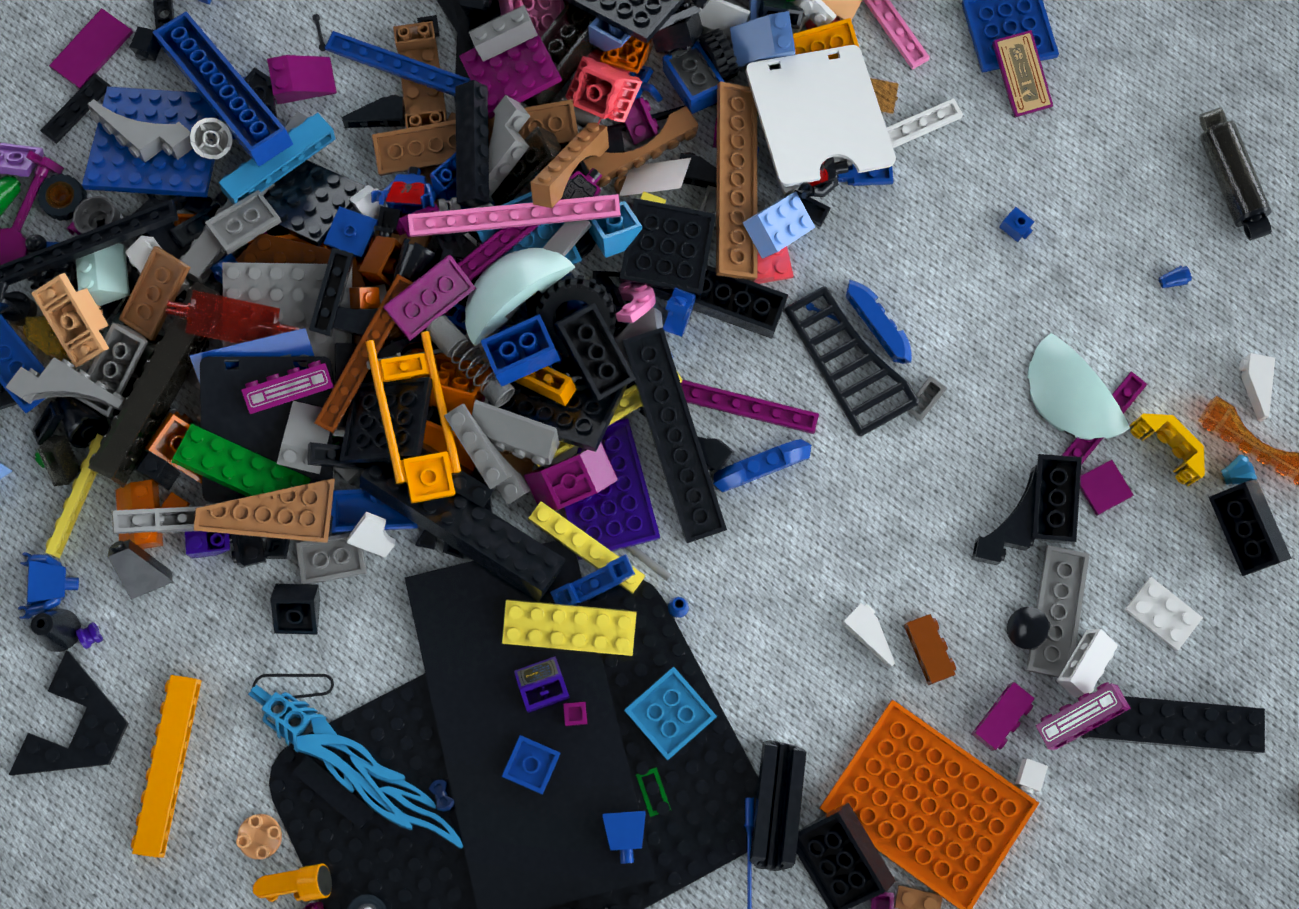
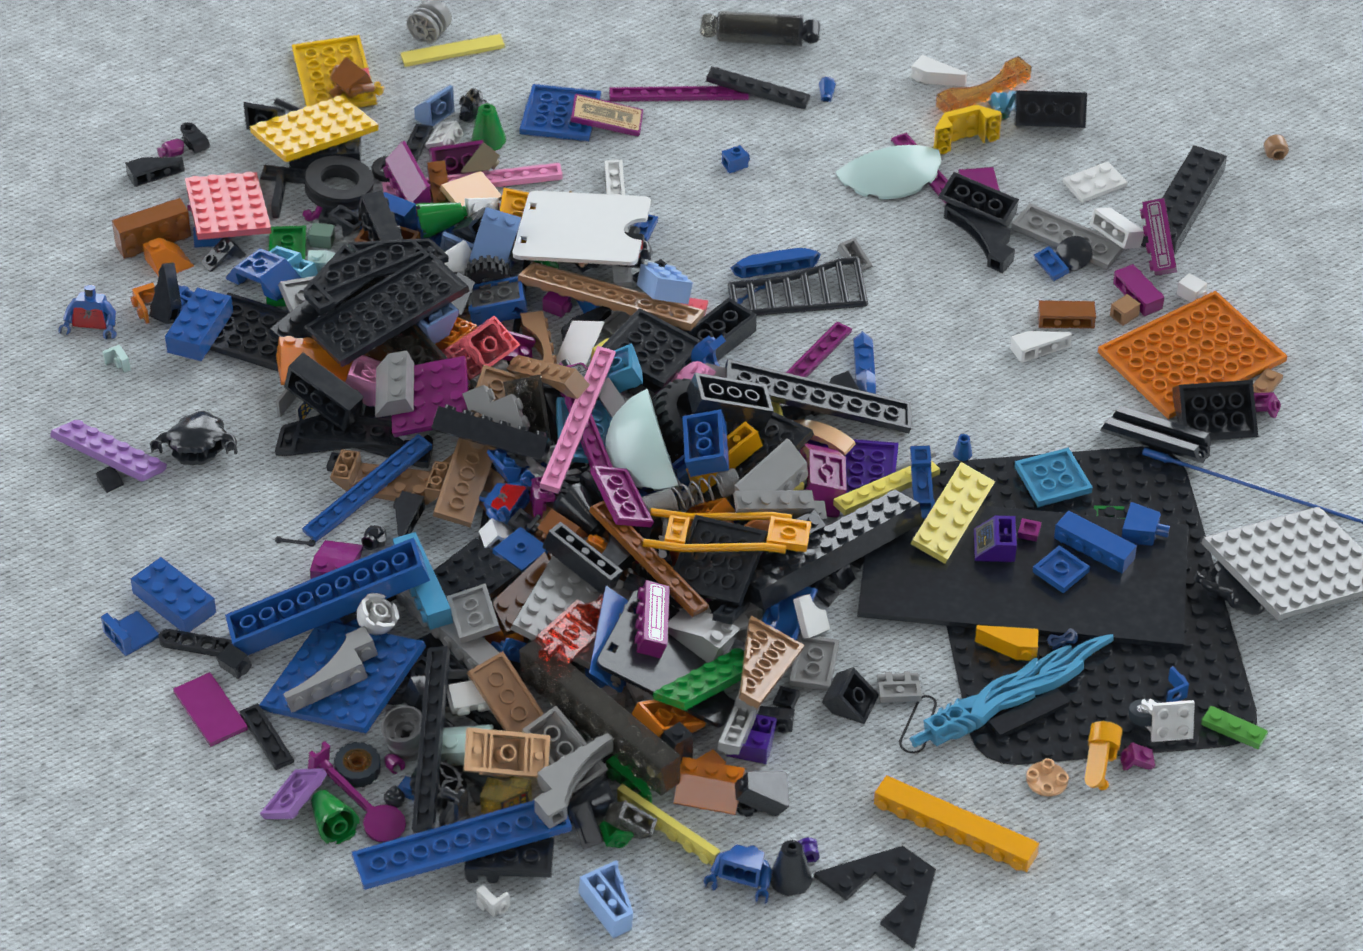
camera: 65 degrees left, 30 degrees down
(322, 654) = (899, 687): none -> light grey plate
(343, 97) = (374, 537): none -> black rock
(417, 748) = (1010, 641): none -> light orange slope
(581, 789) = (1095, 541): none -> blue brick
(635, 456) = (829, 435): none -> light nougat slope
(965, 711) = (1125, 309): none -> medium nougat brick
(1004, 607) = (1051, 263): none -> blue plate
(1098, 132) = (674, 93): none -> magenta tile
(1141, 207) = (758, 88): none -> black plate

